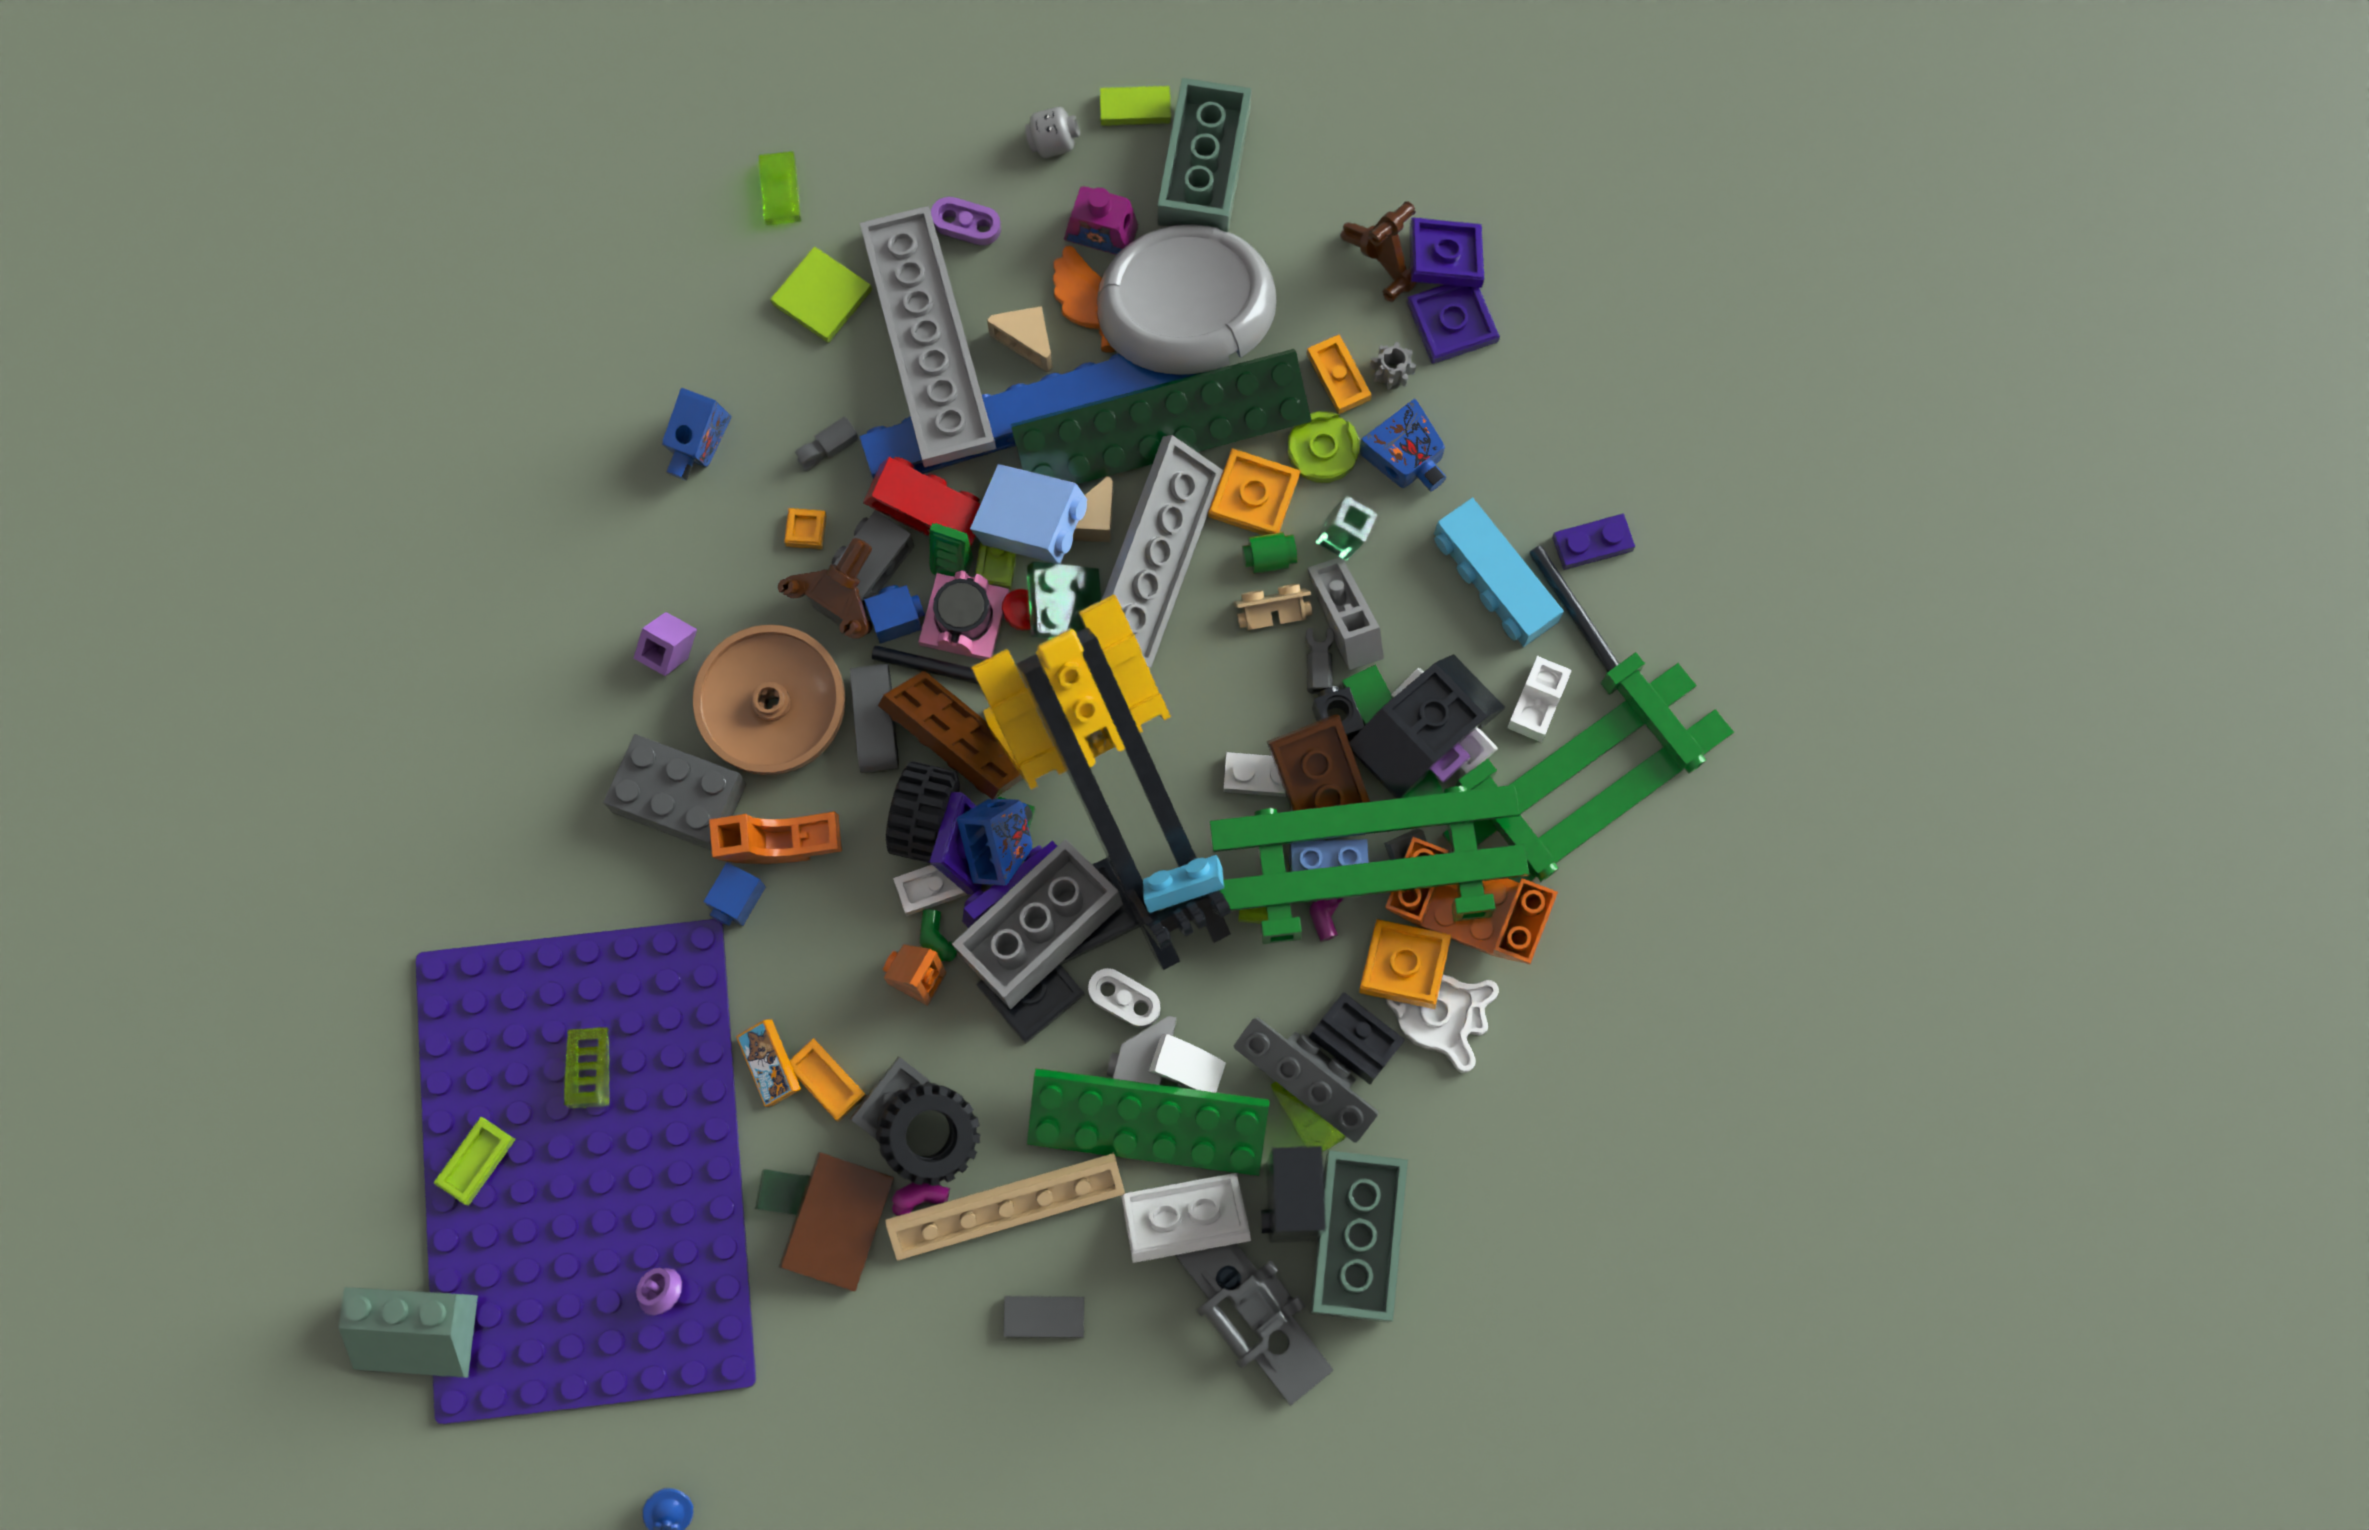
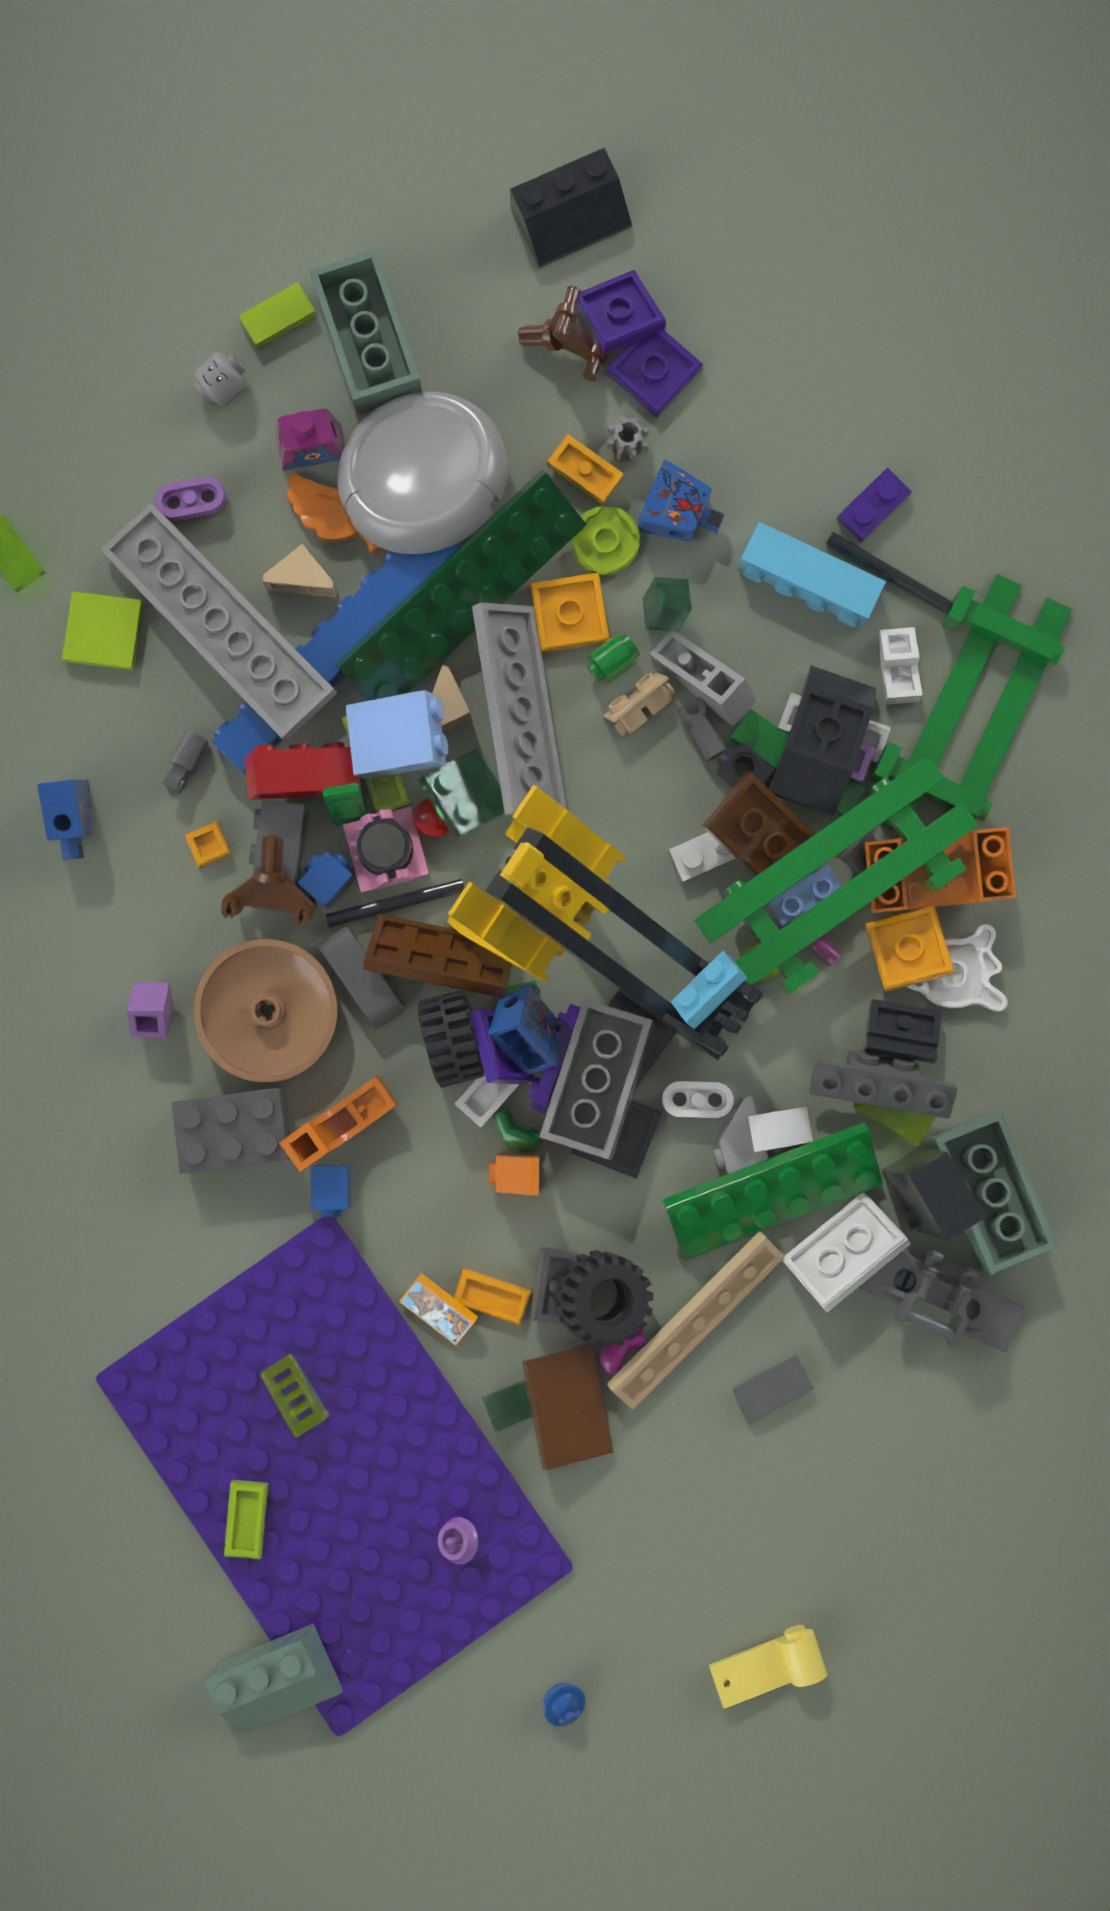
camera: 30 degrees left, 10 degrees up
(1452, 142) = (570, 207): none -> black slope

